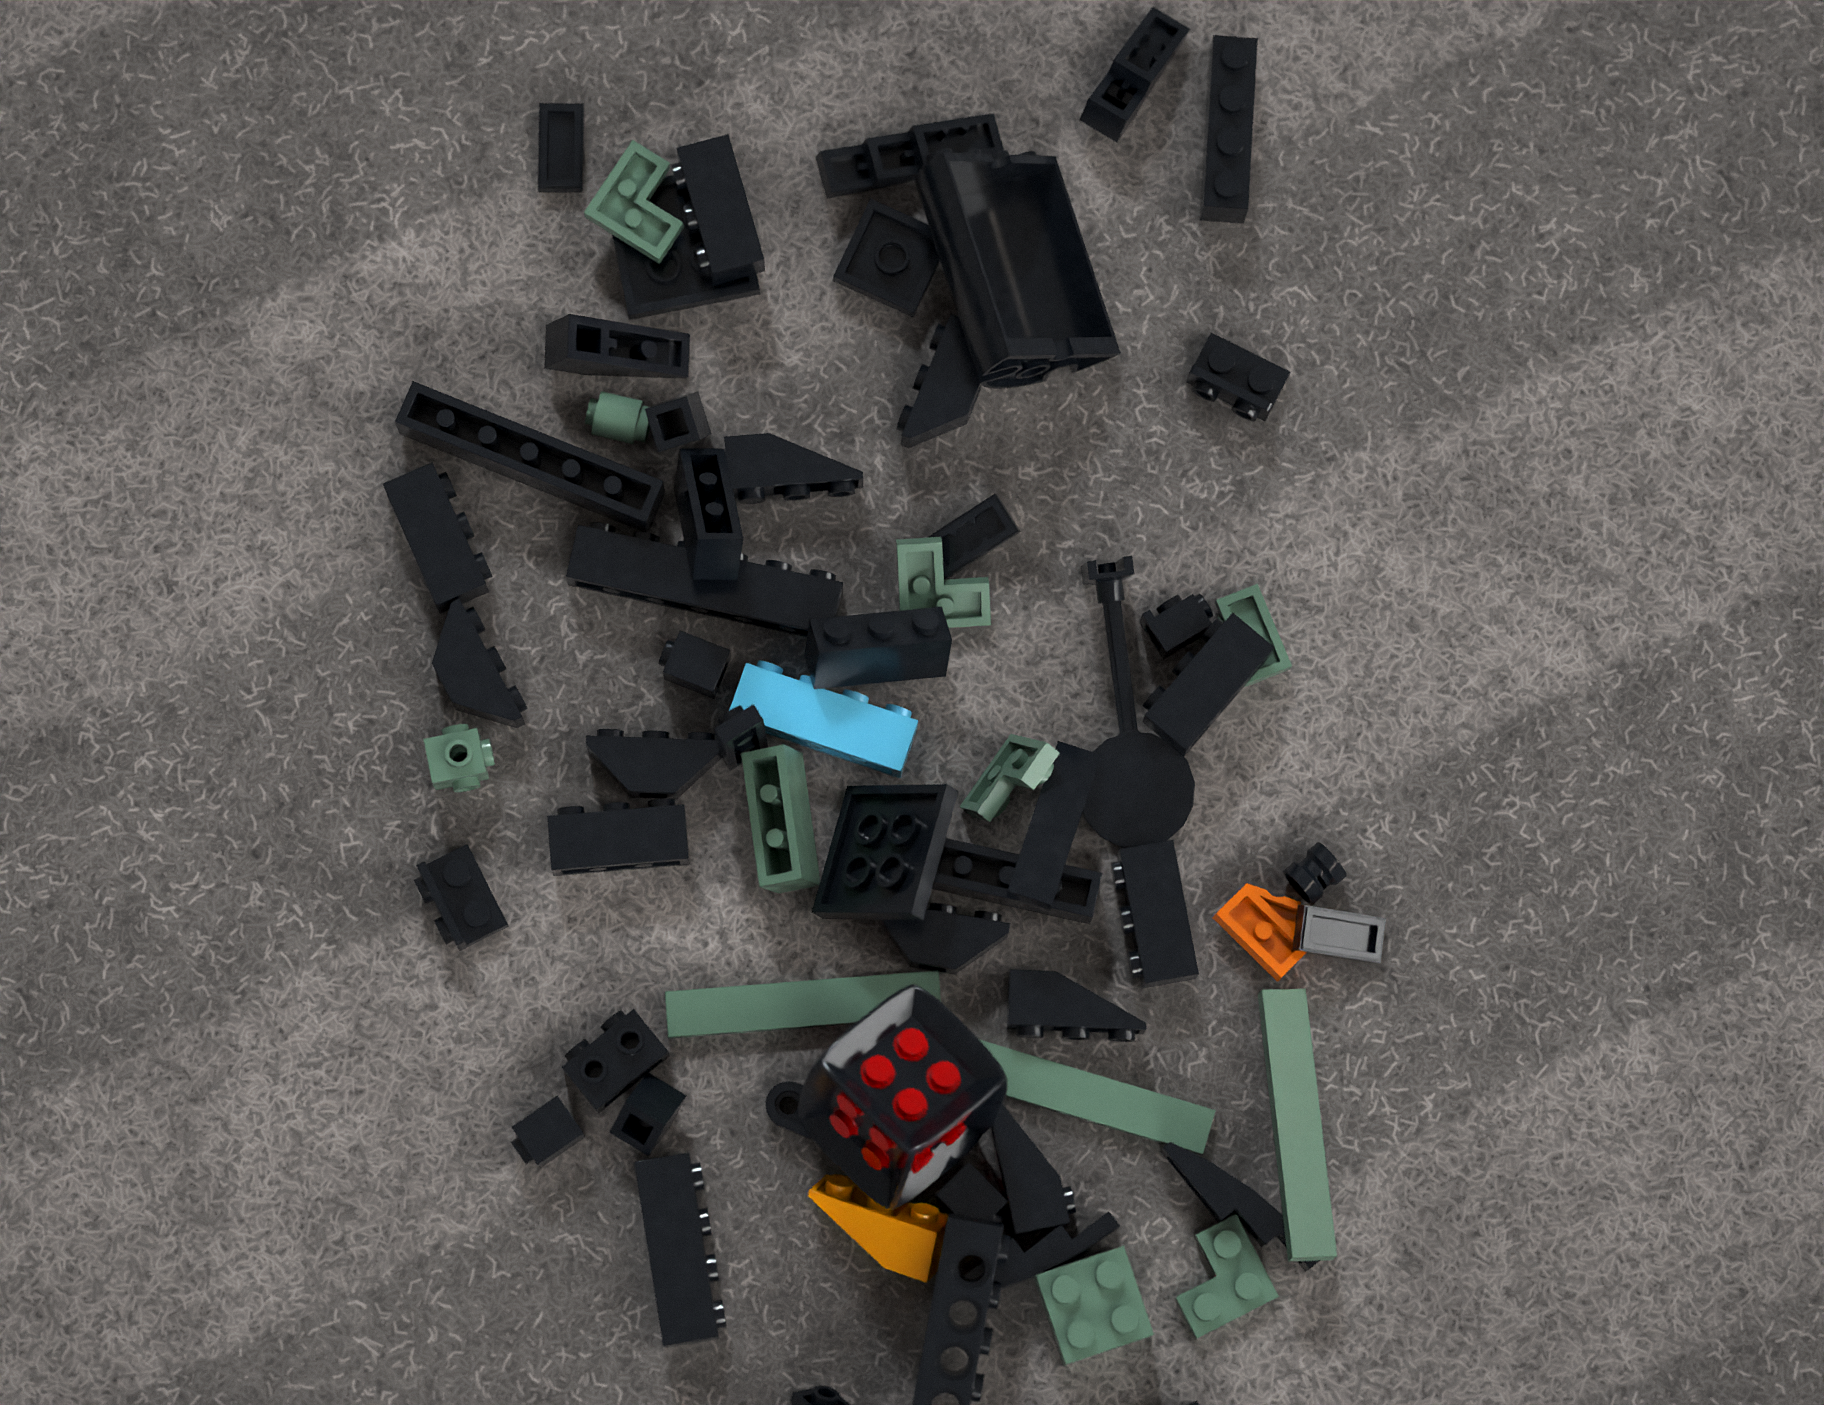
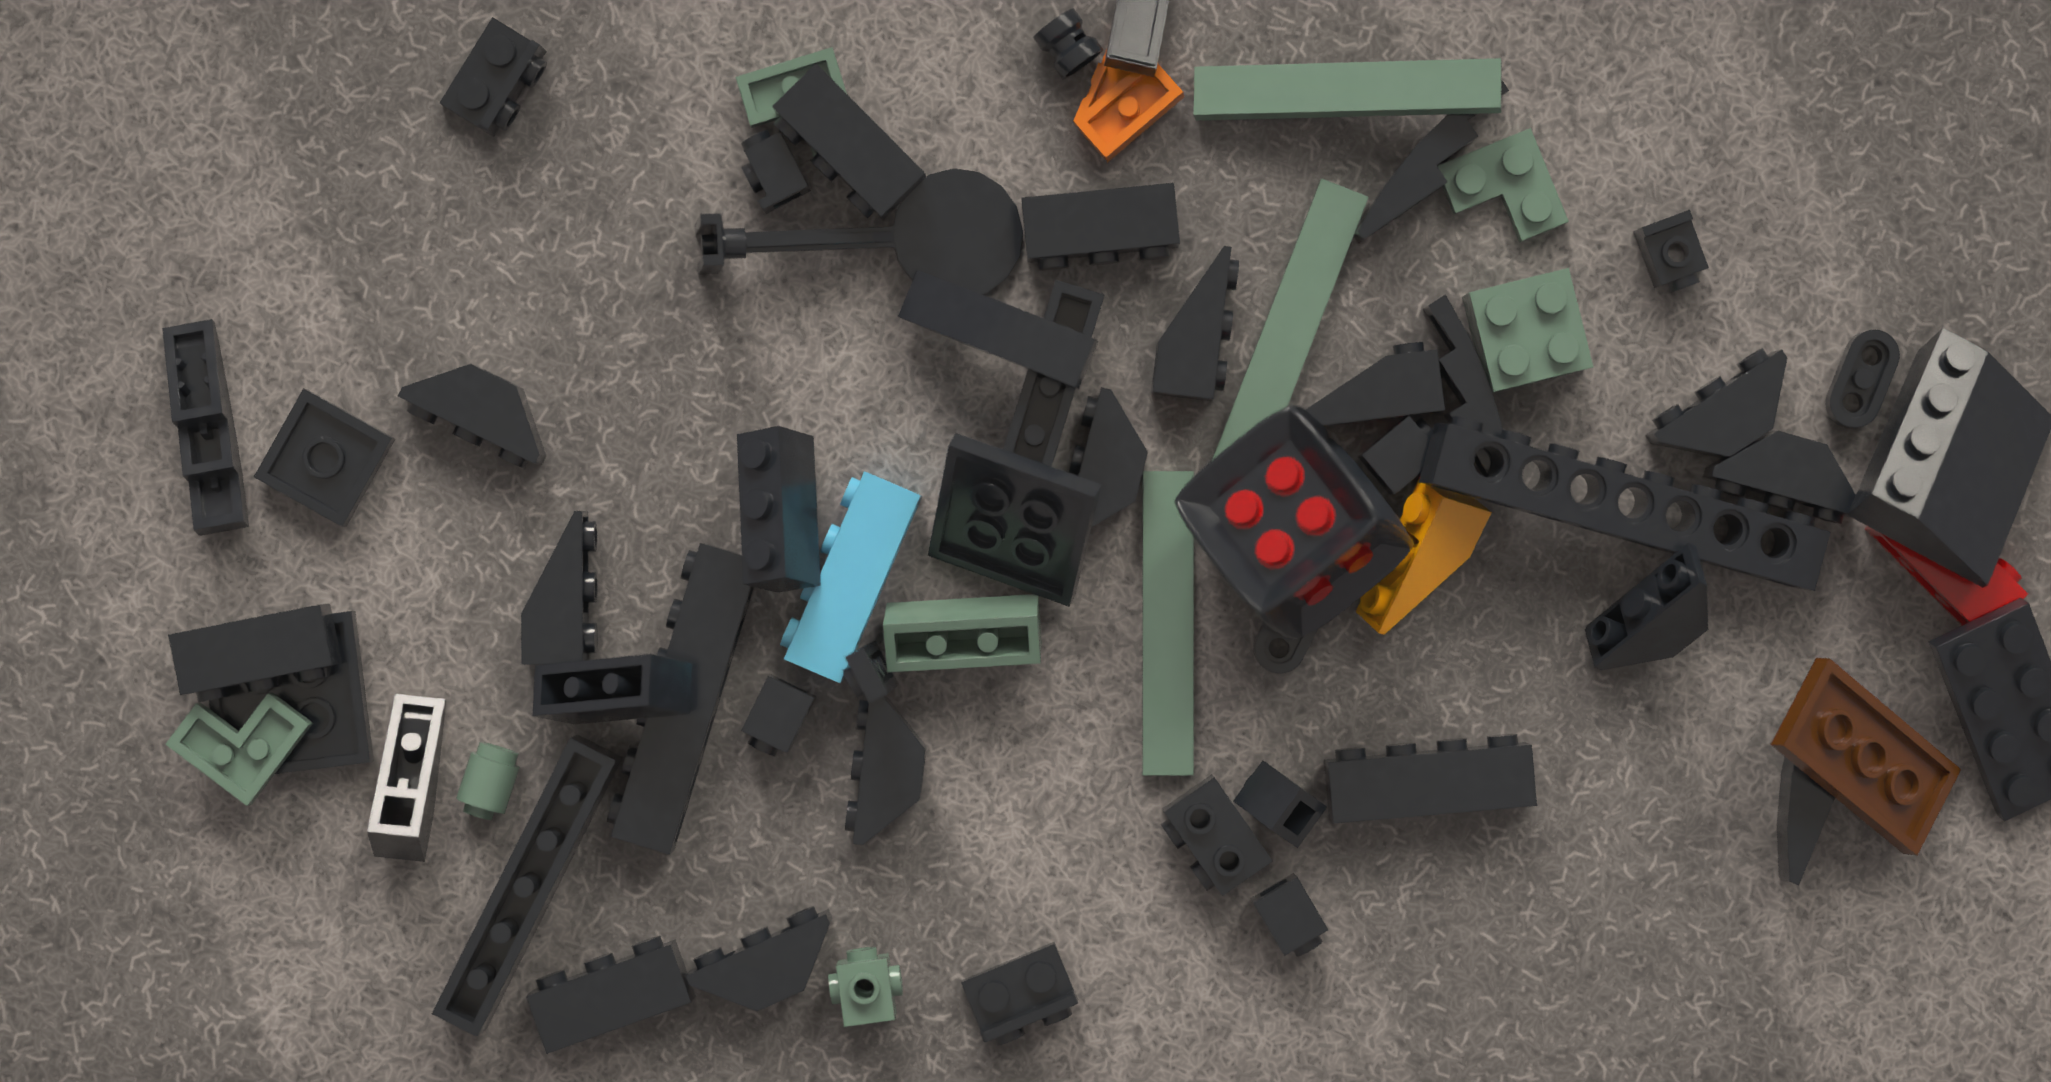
camera: 80 degrees left, 10 degrees up
(561, 147) = (165, 824): black tile -> none
(618, 838) = (967, 815): black brick -> none
(678, 421) = (499, 715): black brick -> none
(923, 585) = (710, 451): sand green plate -> none
(975, 534) = (655, 395): black plate -> none
(1015, 265) = (345, 318): black cylinder -> none
(1017, 763) = (921, 366): sand green plate -> none
(1134, 74) = (128, 163): black slope -> none
(1228, 129) = (202, 60): black brick -> none

